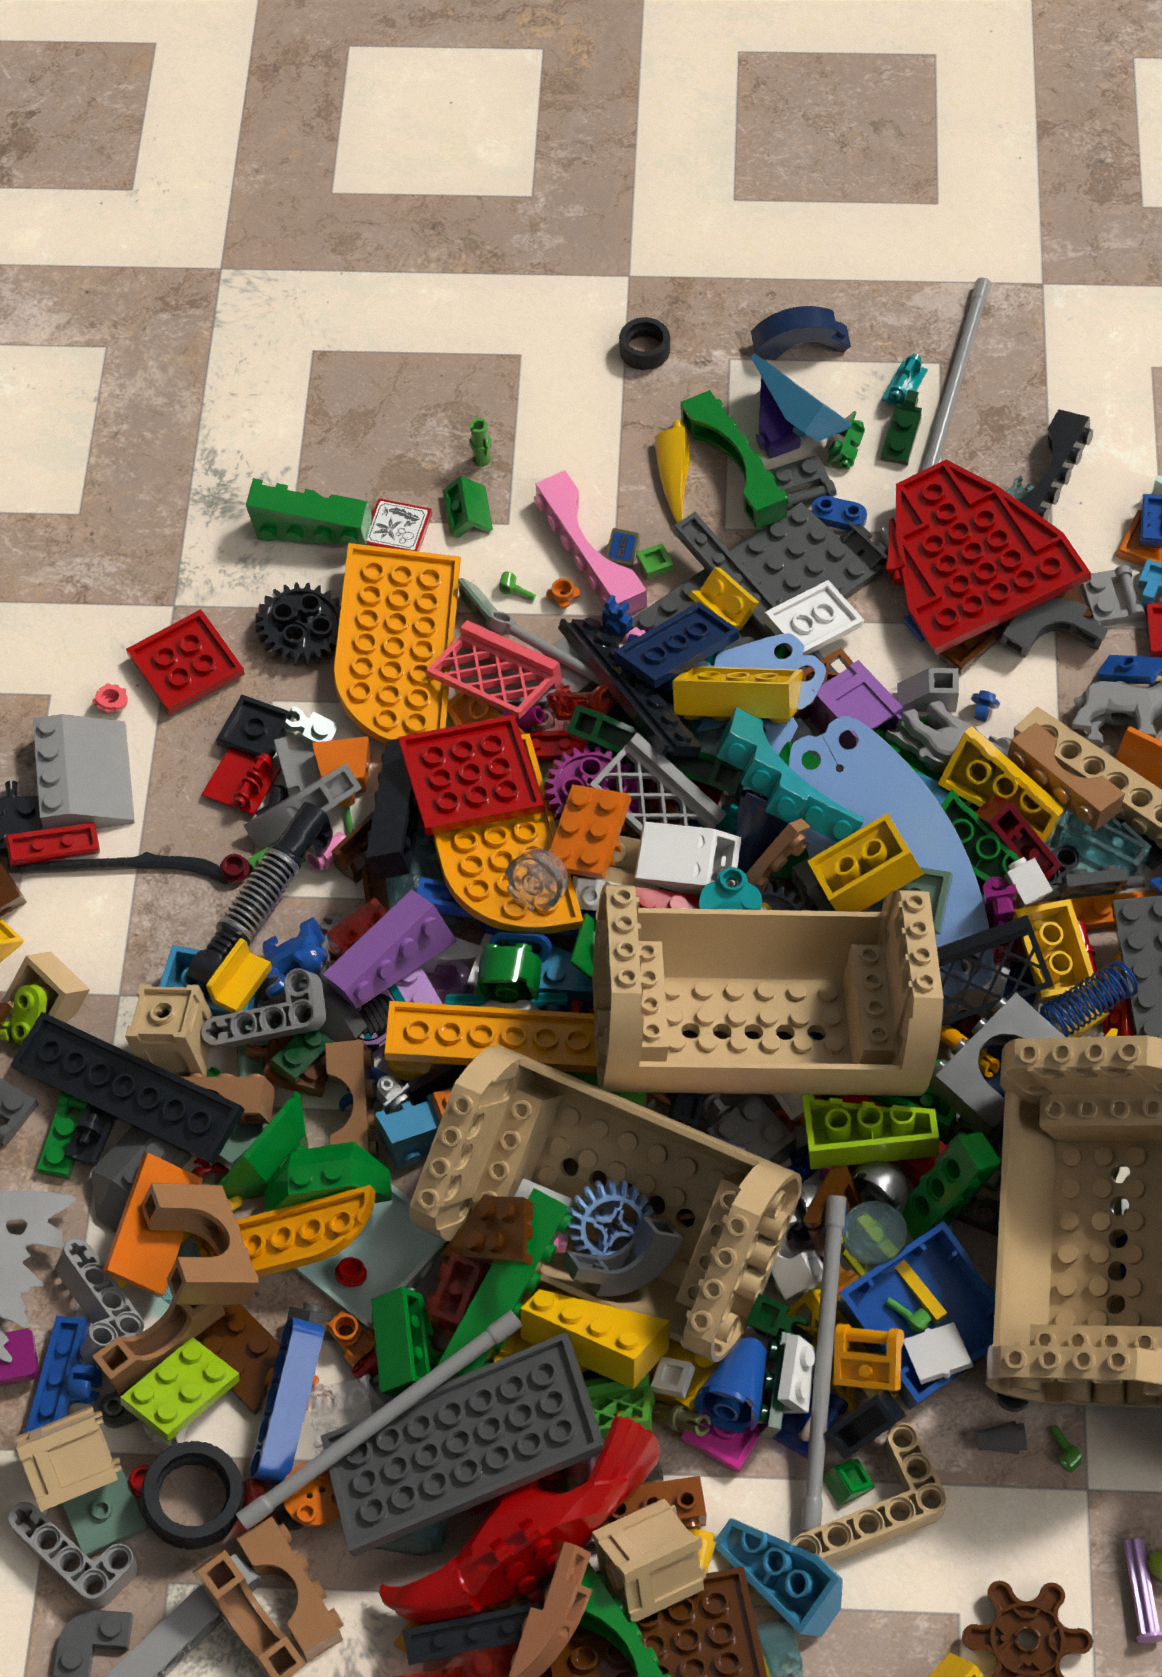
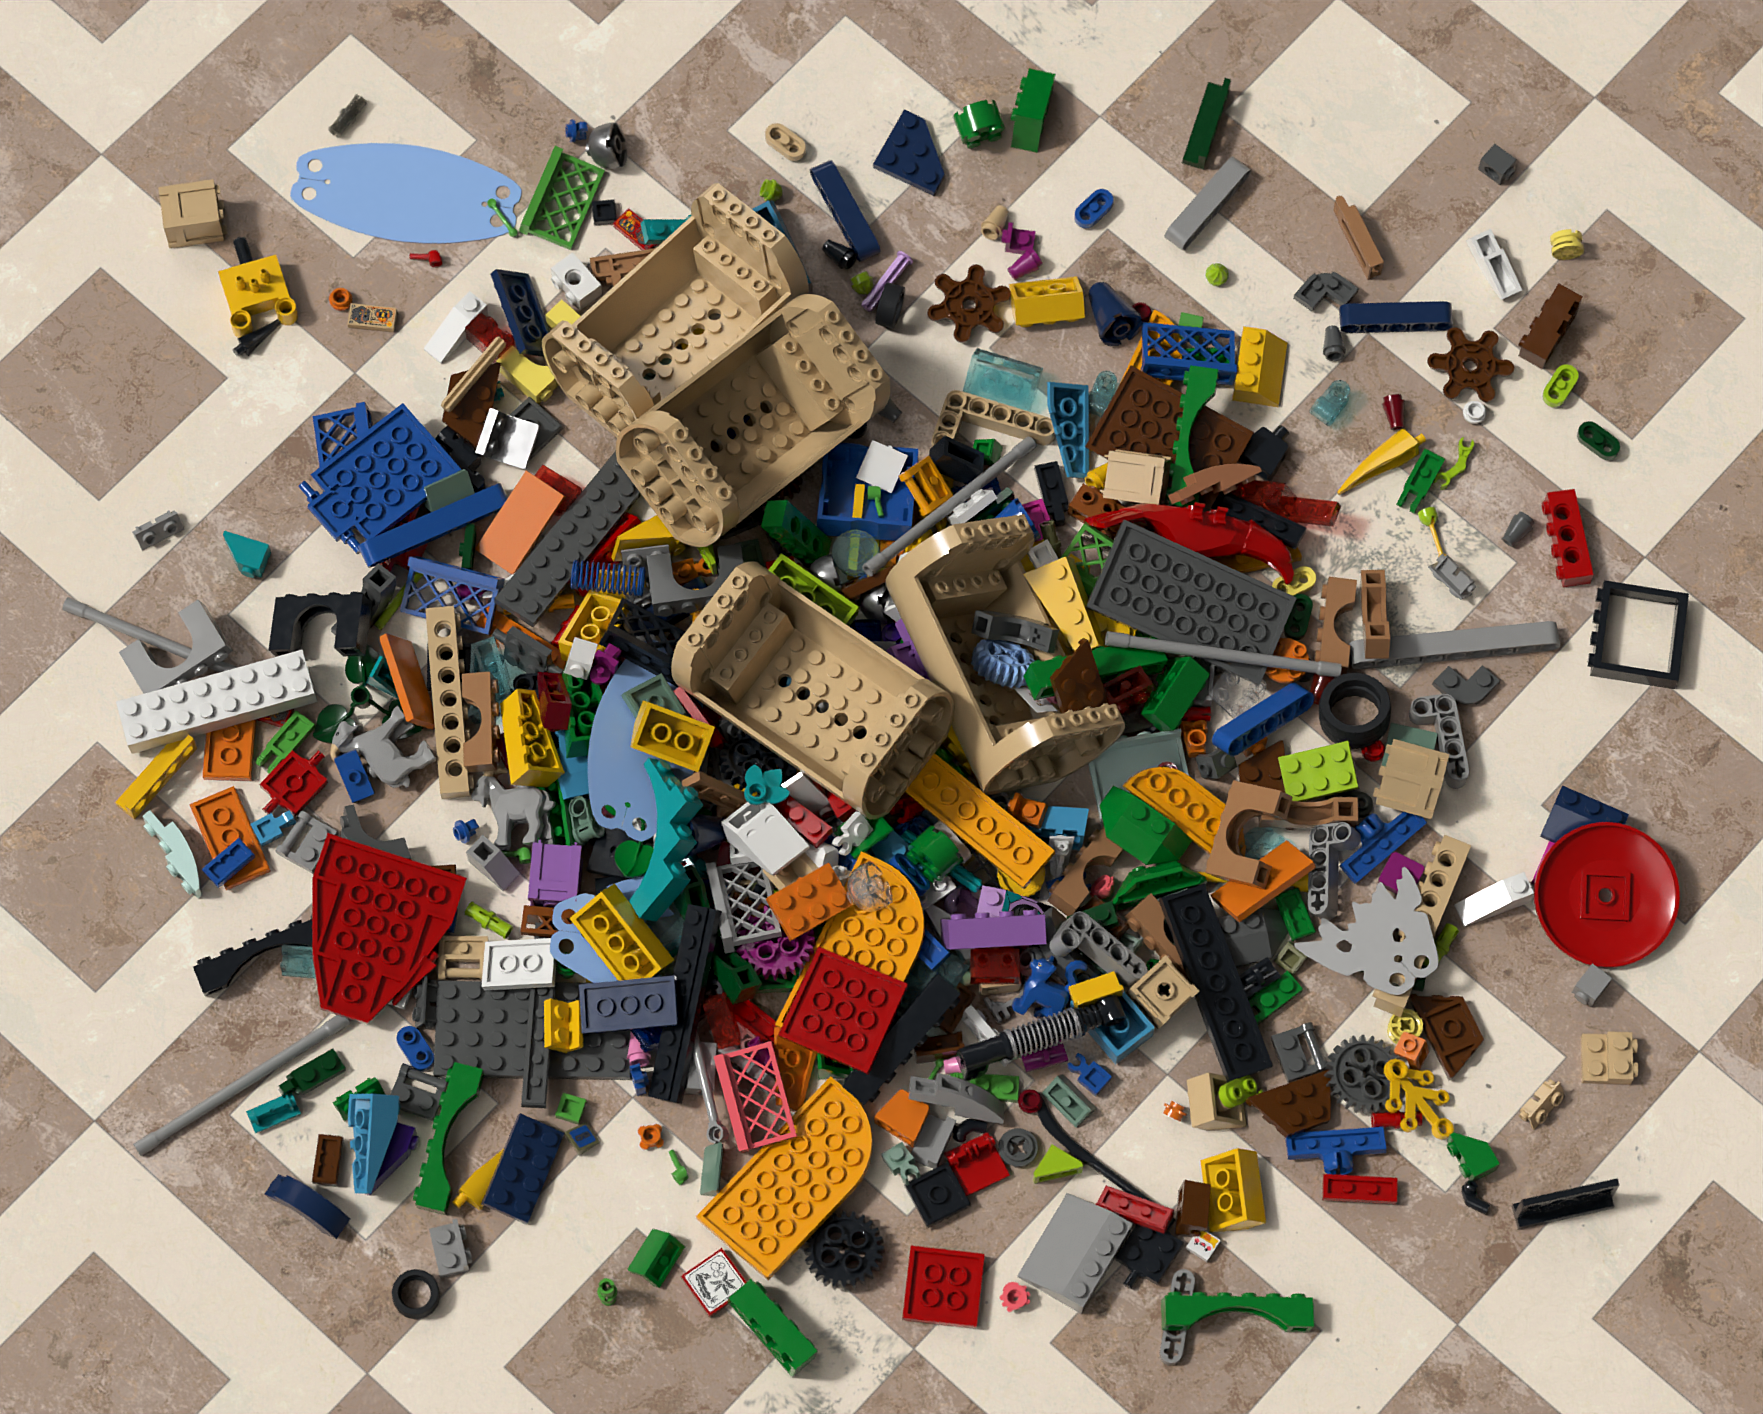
camera: 145 degrees left, 10 degrees up
(81, 1190) = (1290, 958): none -> olive slope
(82, 958) = (1174, 1111): none -> orange plate
(94, 1230) = (1295, 914): none -> green plate
(159, 830) = (1056, 1165): none -> lime slope
(191, 930) = (1091, 1076): none -> blue plate
(197, 900) = (1069, 1100): none -> sand green slope
(202, 816) = (1015, 1137): none -> dark grey gear
(322, 890) = (976, 1023): none -> white hinge
(326, 1112) = (1103, 887): none -> coral animal
(343, 1567) = (1299, 618): none -> dark green plate
(371, 1602) = (1296, 586): none -> light yellow plate
(560, 502) = (591, 1204): bright pink arch -> none
(648, 486) = (522, 1168): none -> dark blue plate
(650, 395) = (449, 1249): none -> light grey bracket
(736, 1491) = (1052, 490): none -> black hinge
(821, 381) = (327, 1160): none -> reddish brown plate
(882, 609) = (461, 950): none -> tan plate
(884, 650) = (488, 920): none -> lime pin
(904, 1573) = (1002, 379): none -> clear light blue slope
(1106, 1552) = (890, 305): none -> black tyre

